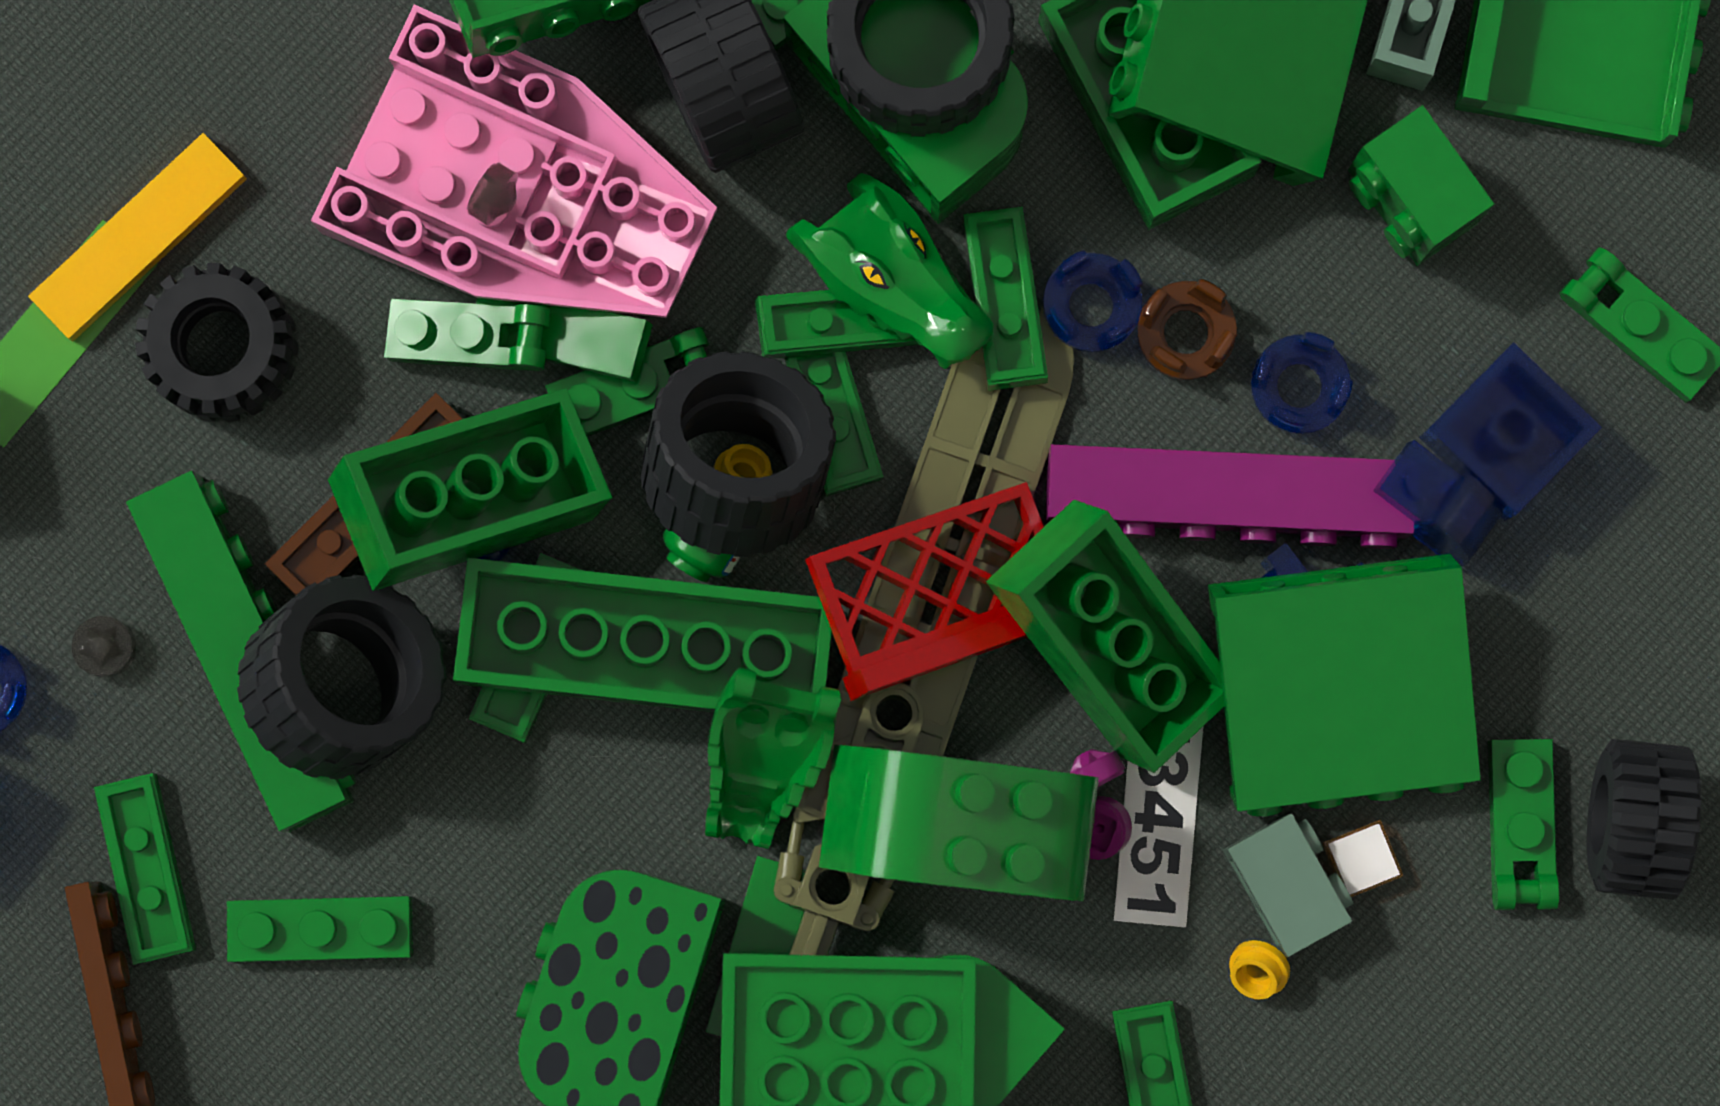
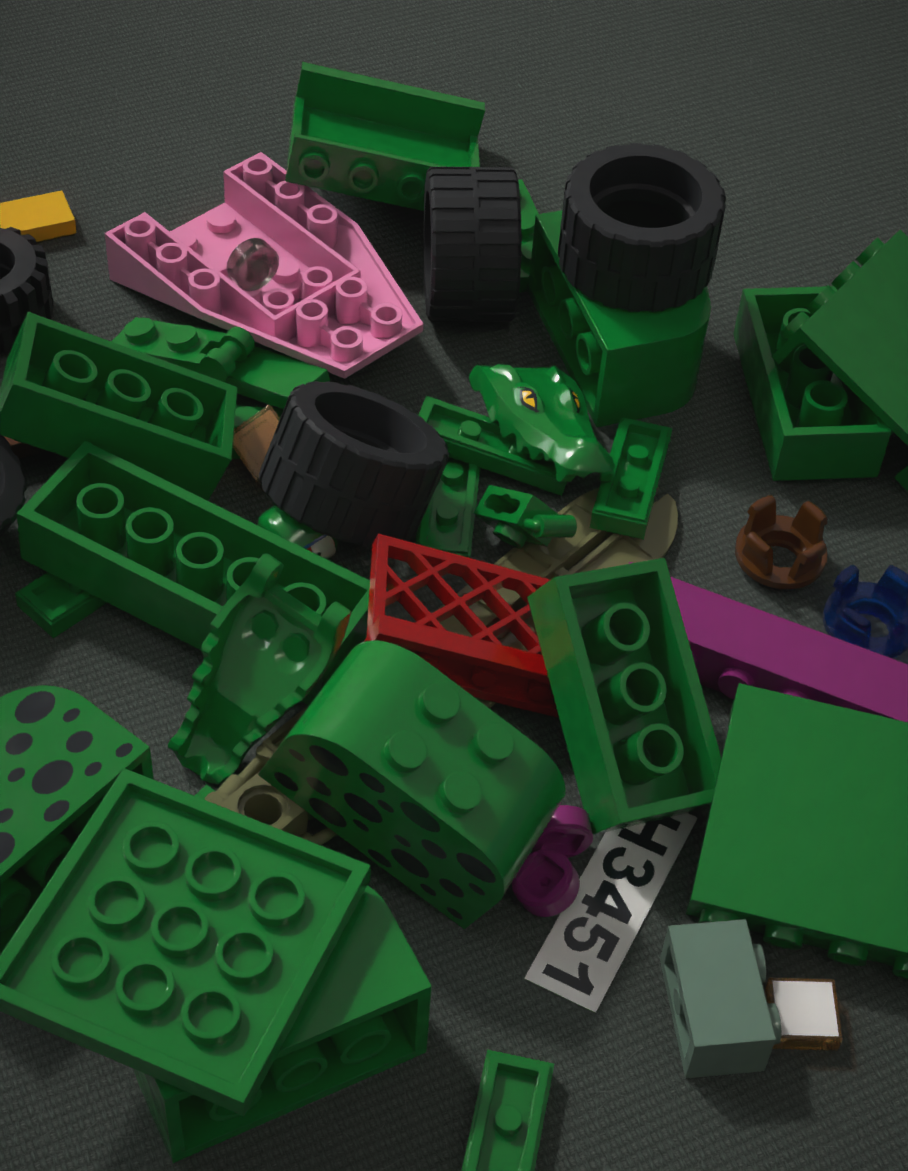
camera: 15 degrees right, 35 degrees down
(617, 427) = (254, 437): none -> clear orange tile
(926, 426) = (522, 518): none -> green piece
(1116, 277) = (702, 484): clear blue piece -> none
(1258, 969) = (641, 1069): yellow plate -> none

